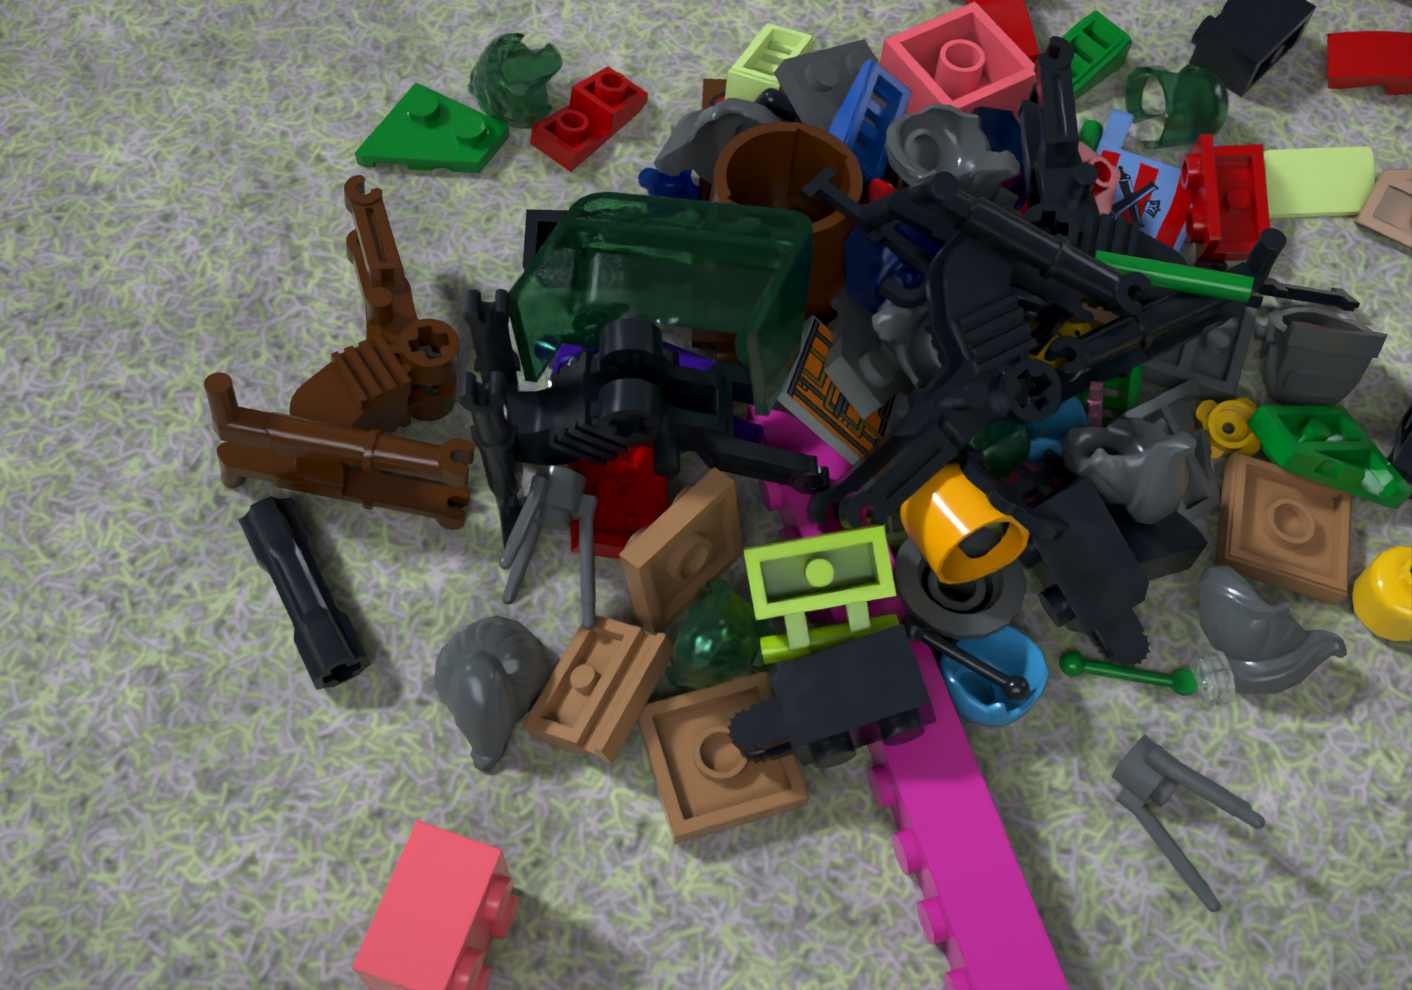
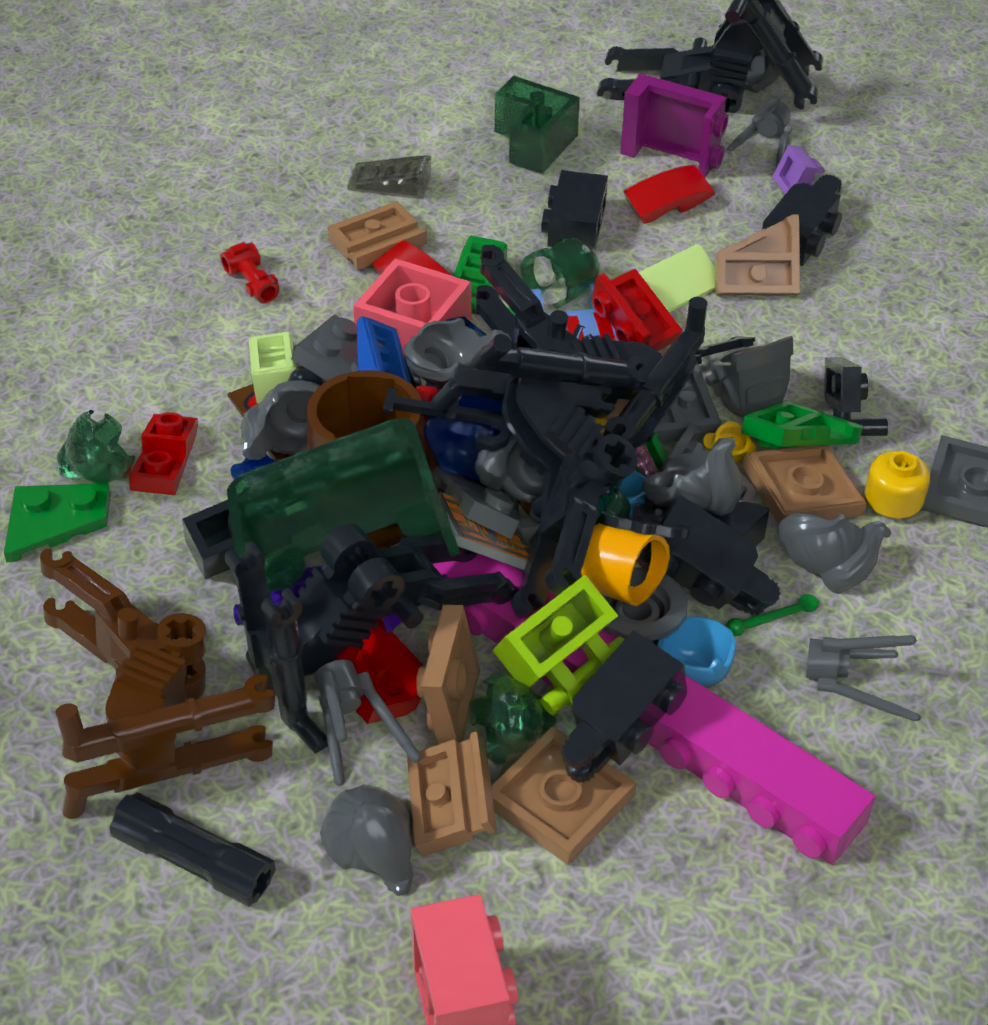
camera: 30 degrees left, 15 degrees down
(1013, 687) = (717, 646): black hinge -> none
(1183, 277) = (666, 349): green piece -> none
(1213, 679) = (825, 588): clear piece -> none

